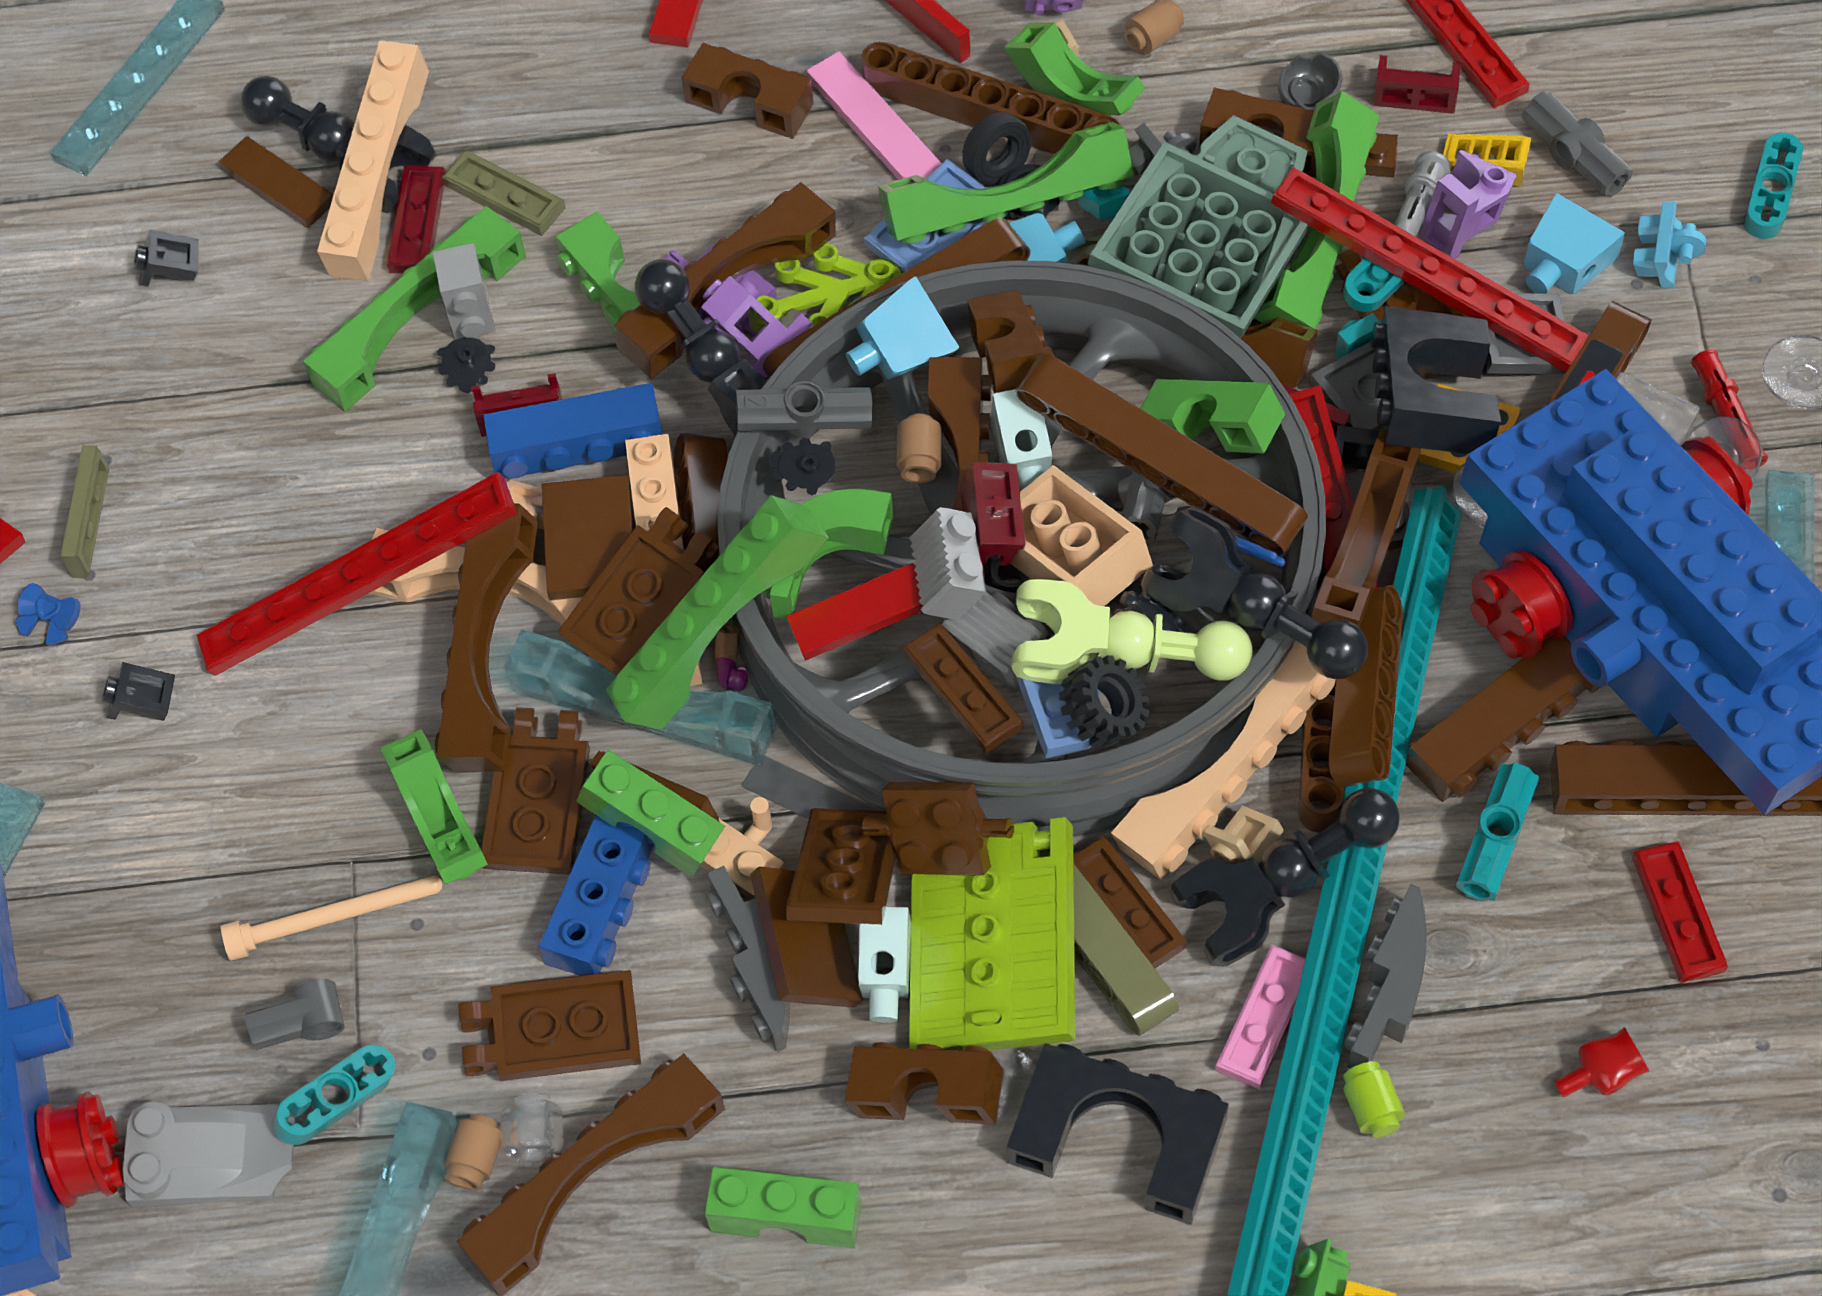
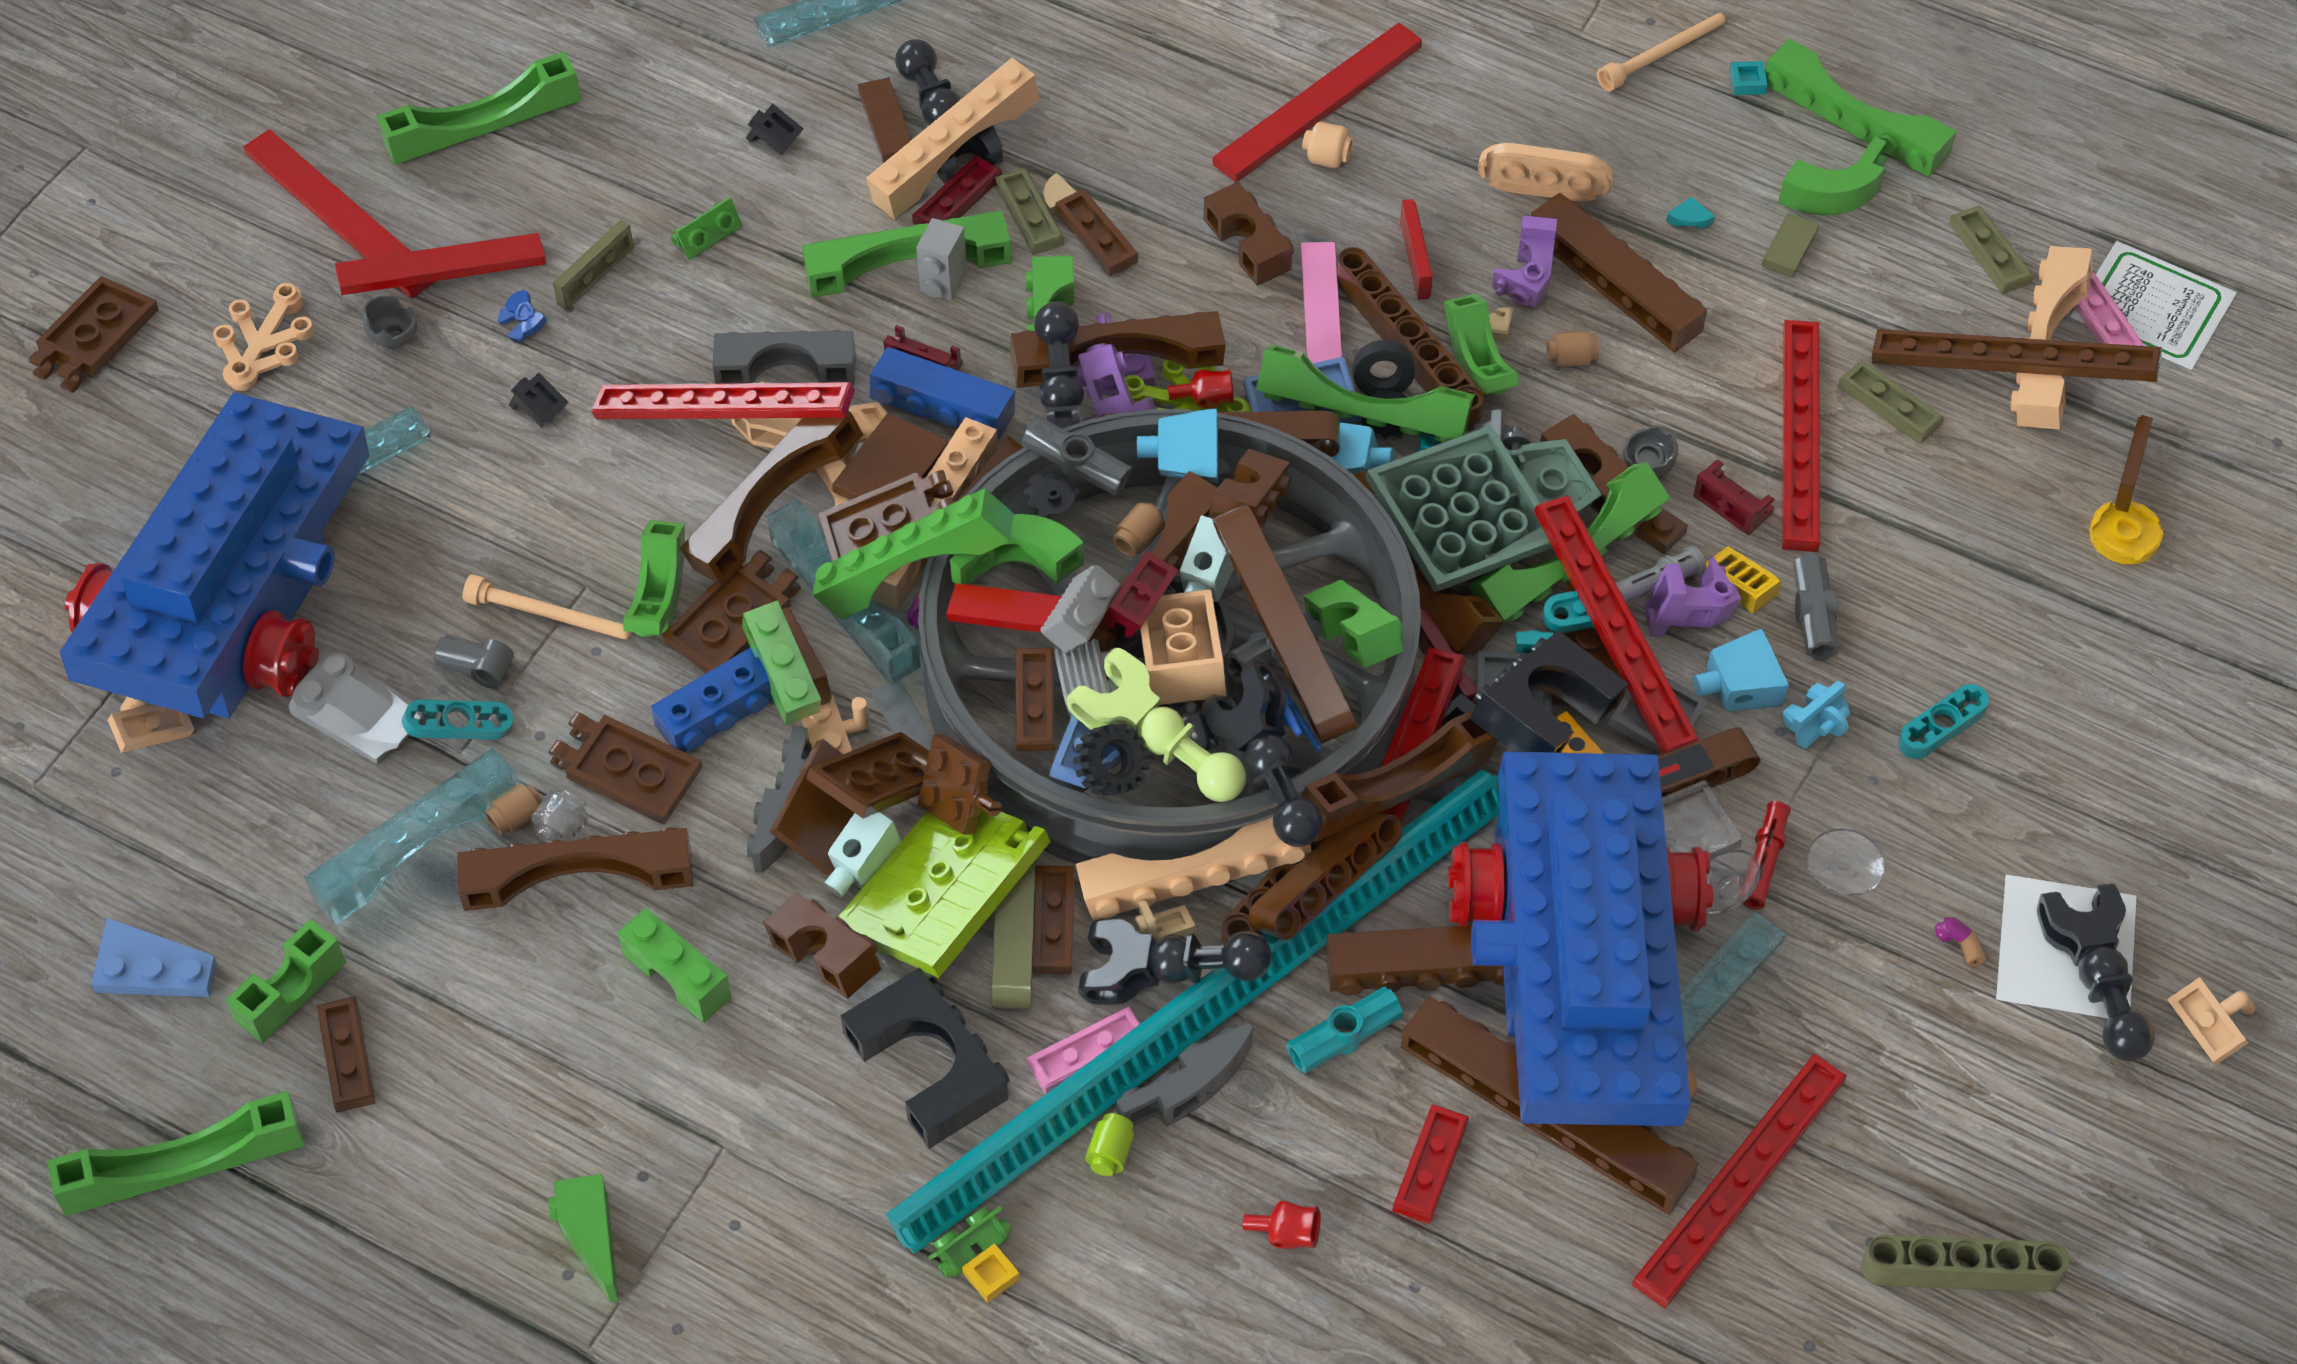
camera: 30 degrees right, 5 degrees down
(180, 400) = (707, 228): none -> bright green hinge
(415, 462) = (746, 355): none -> dark grey arch
(466, 363) = (913, 309): black piece -> none
(520, 157) = (1055, 190): none -> tan tile
(593, 174) = (1096, 232): none -> reddish brown plate
(843, 267) = (1206, 388): none -> red piece

